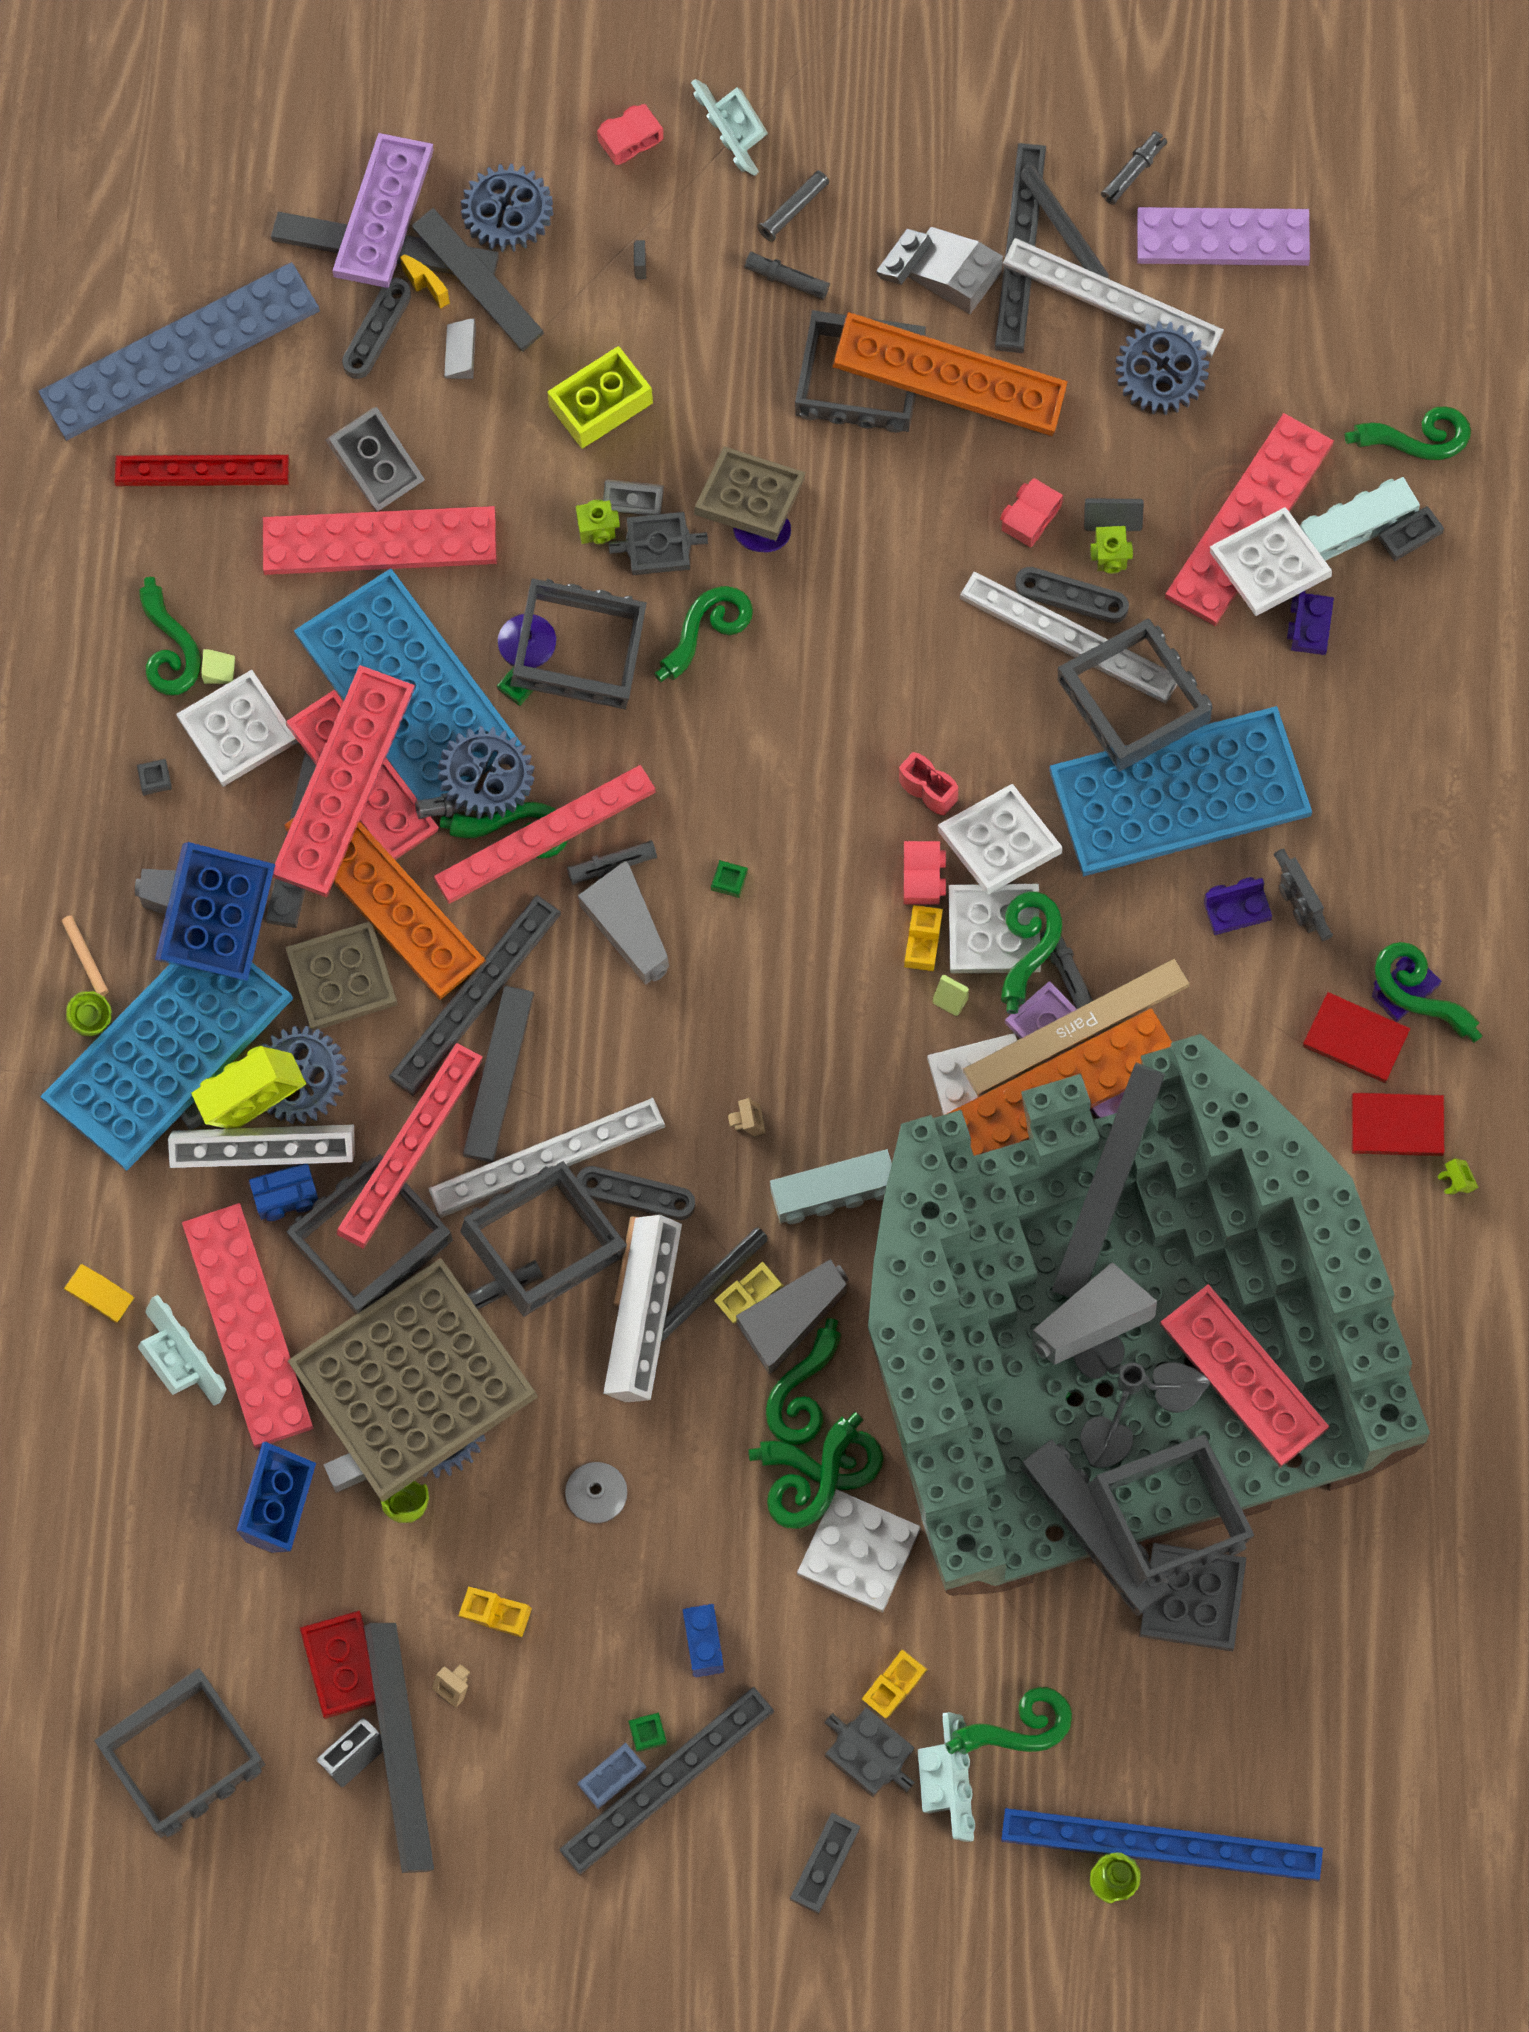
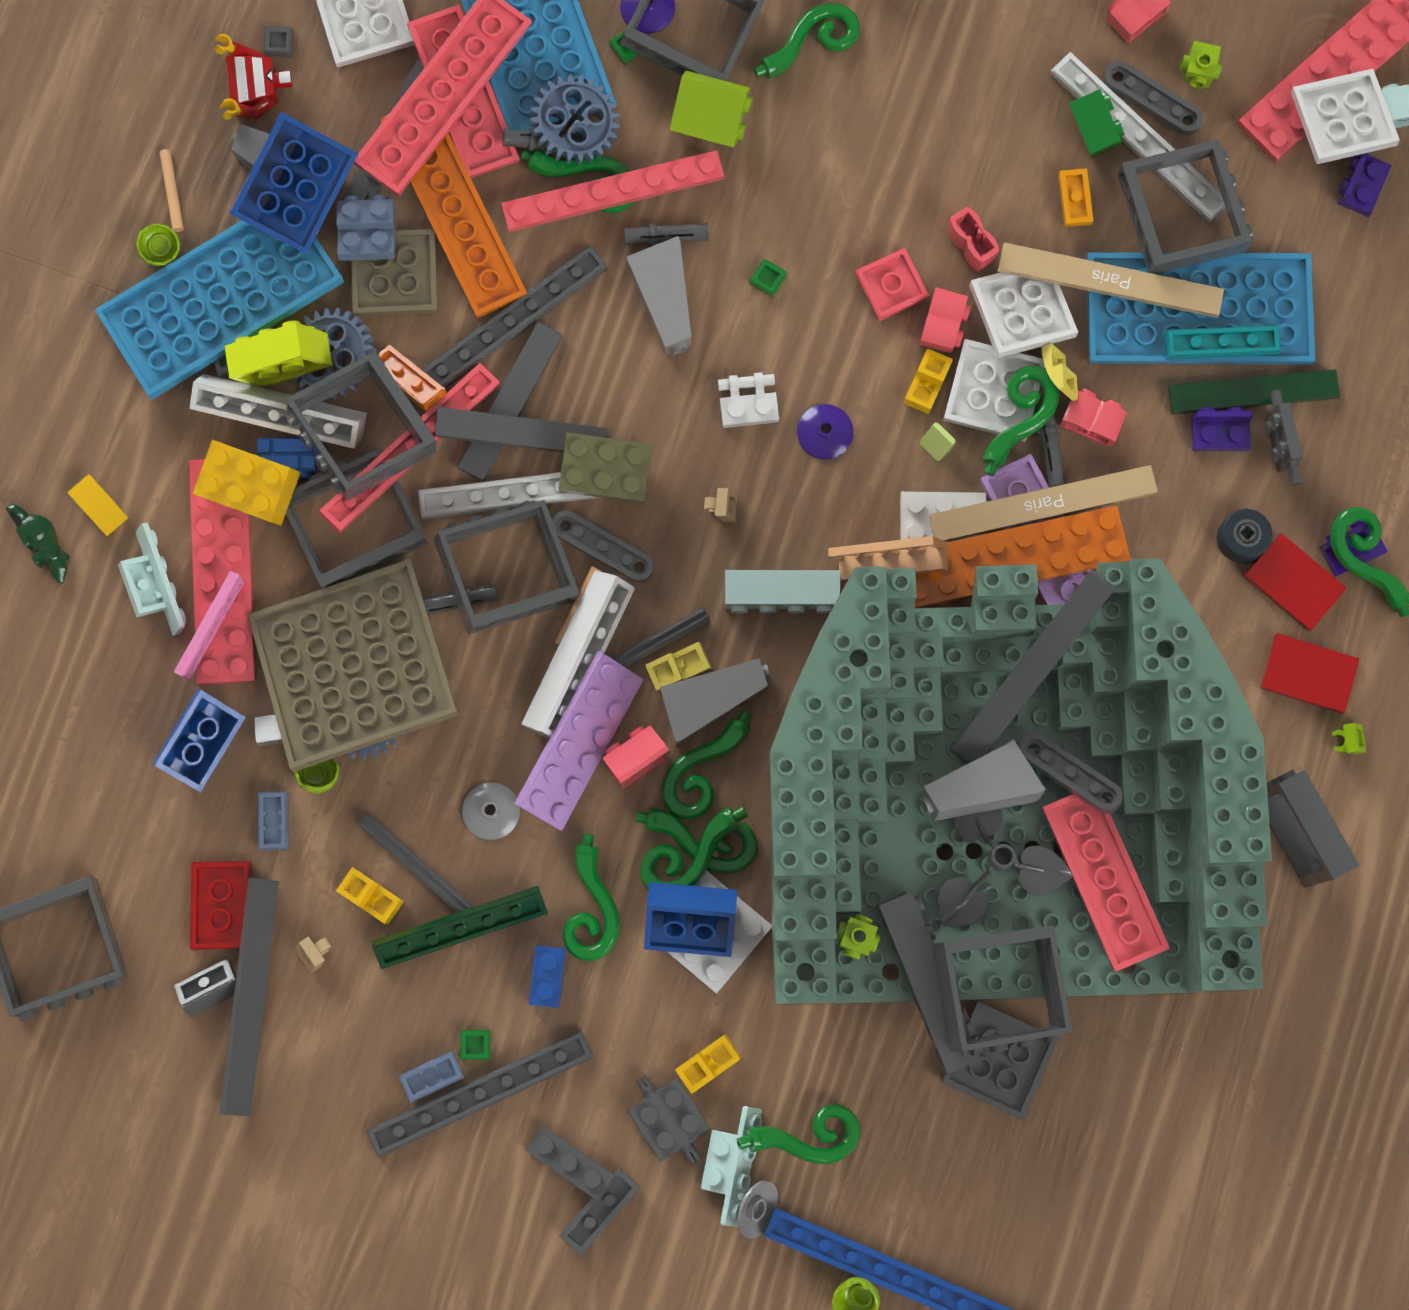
camera: 10 degrees right, 10 degrees up
(48, 1340) = (40, 535): none -> dark green animal
(138, 822) = (250, 80): none -> torso
(252, 1224) = (246, 482): none -> yellow brick
(253, 1380) = (209, 626): none -> bright pink tile
(301, 938) = (366, 228): none -> sand blue plate
(373, 1562) = (273, 821): none -> sand blue plate
(382, 1097) = (367, 366): none -> dark grey window
(387, 1077) = (411, 379): none -> orange tile
(519, 1100) = (508, 429): none -> dark grey tile
(534, 1568) = (413, 864): none -> dark grey axle
(597, 1616) = (459, 927): none -> dark green tile
(617, 1111) = (605, 468): none -> olive brick
(623, 725) = (711, 109): none -> lime brick
(668, 1394) = (579, 741): none -> lavender plate
(711, 1519) = (586, 868): none -> green plant
(732, 1393) = (635, 756): none -> coral slope
(747, 1015) = (748, 409): none -> white plate
(781, 1822) = (570, 1163): none -> dark grey plate
(829, 1030) = (824, 445): none -> dark purple dish
(834, 1539) = (690, 919): none -> blue slope
(858, 851) = (892, 284): none -> coral plate
(972, 1099) = (921, 553): none -> light nougat fence
(986, 1812) = (757, 1209): none -> light grey dish
(1009, 1512) = (846, 932): none -> lime brick
(1021, 635) = (1097, 123): none -> green brick
(1021, 715) = (1075, 197): none -> light orange plate
(1053, 891) = (1058, 372): none -> light yellow slope
(1080, 786) = (1110, 280): none -> tan tile
(1103, 928) = (1094, 418): none -> coral brick
(1113, 512) = (1212, 31): dark grey slope -> none
(1179, 1279) = (1071, 773): none -> dark grey plate
(1212, 817) = (1222, 342): none -> teal tile
(1258, 858) = (1253, 391): none -> dark green tile
(1290, 1016) = (1237, 543): none -> black wheel
(1432, 1273) = (1307, 830): none -> dark grey window

